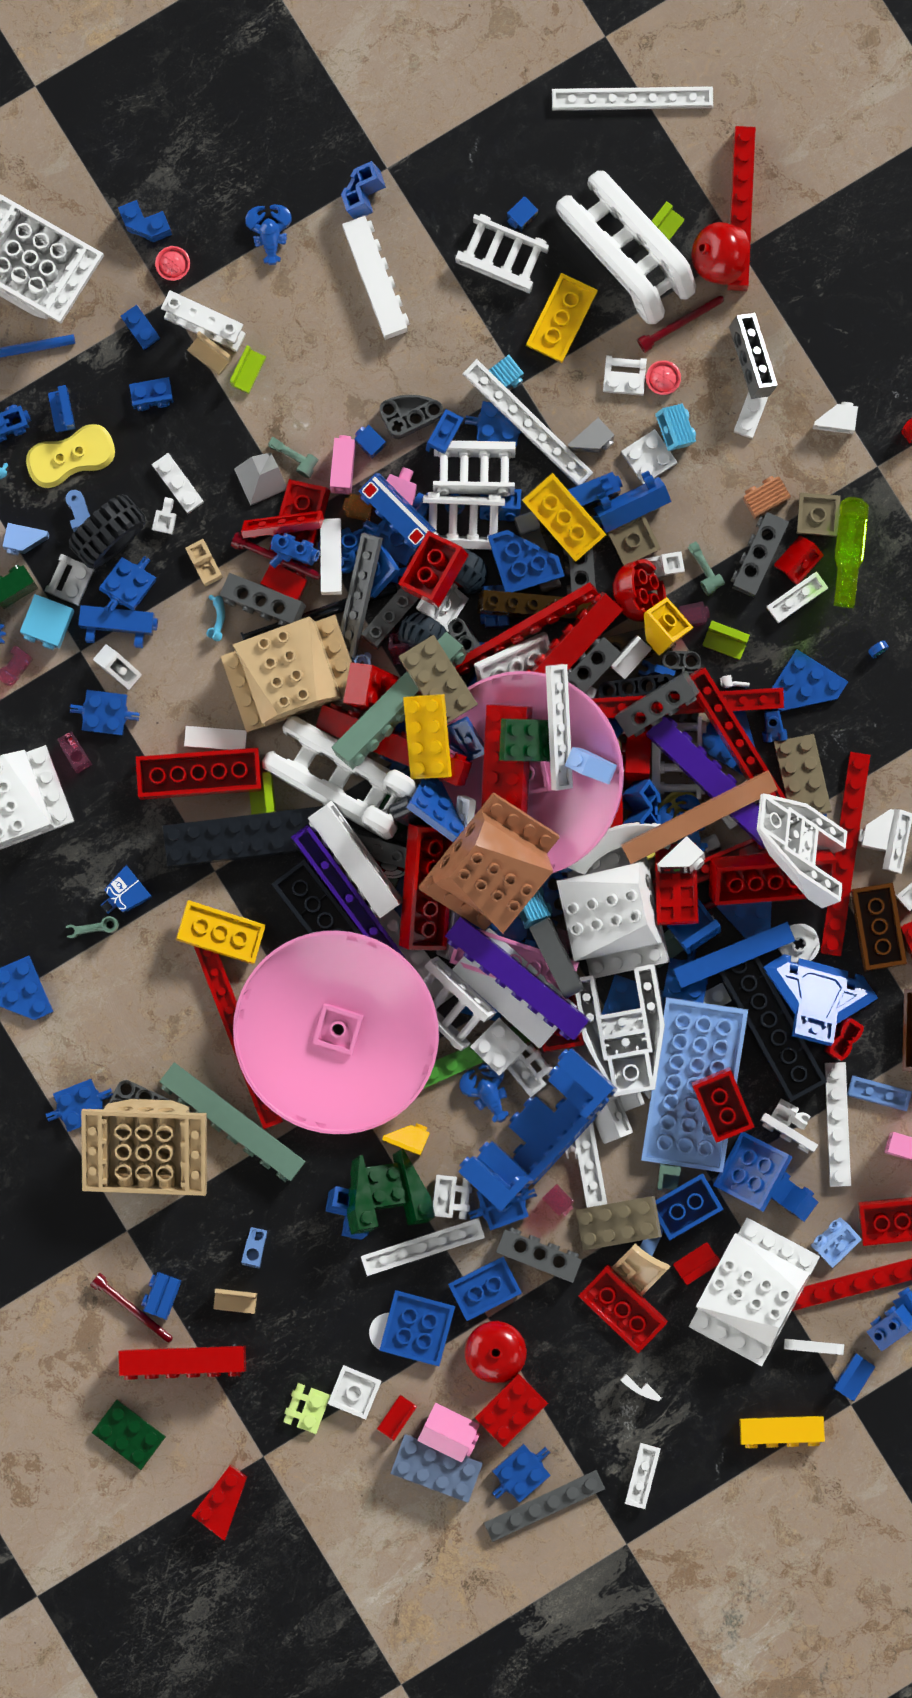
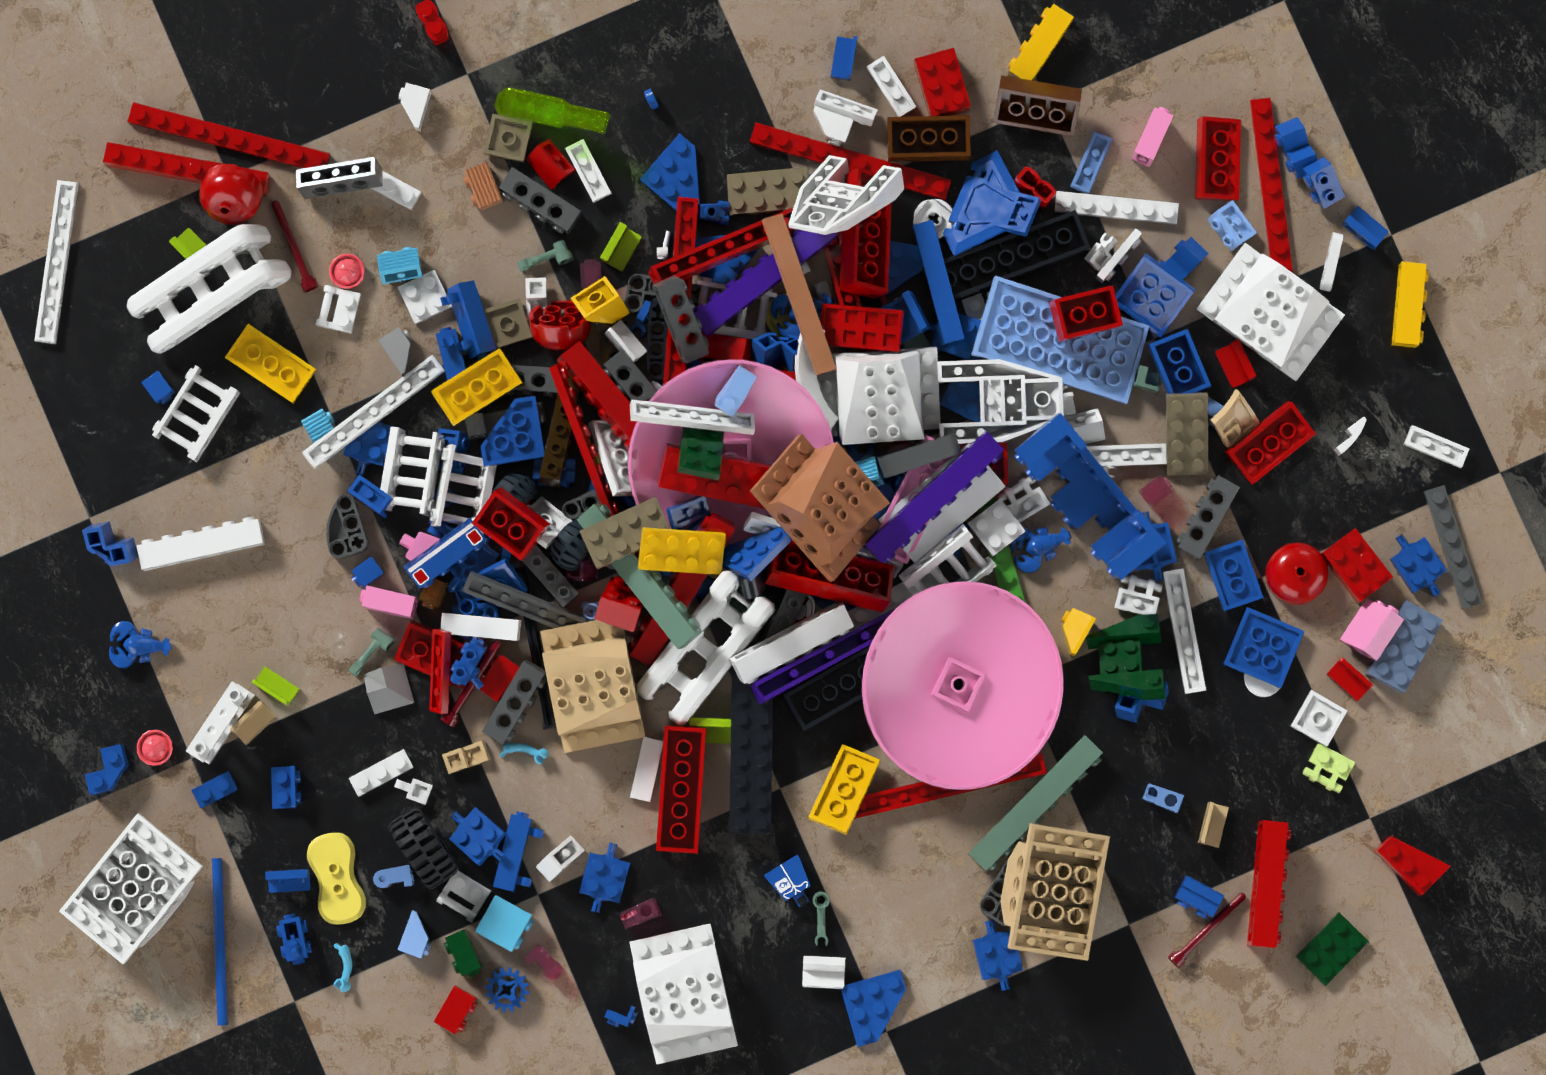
camera: 85 degrees left, 0 degrees up
(40, 937) = (823, 972): none -> white panel
(682, 858) = (837, 317): white slope -> none
(779, 243) = (226, 137): none -> red plate

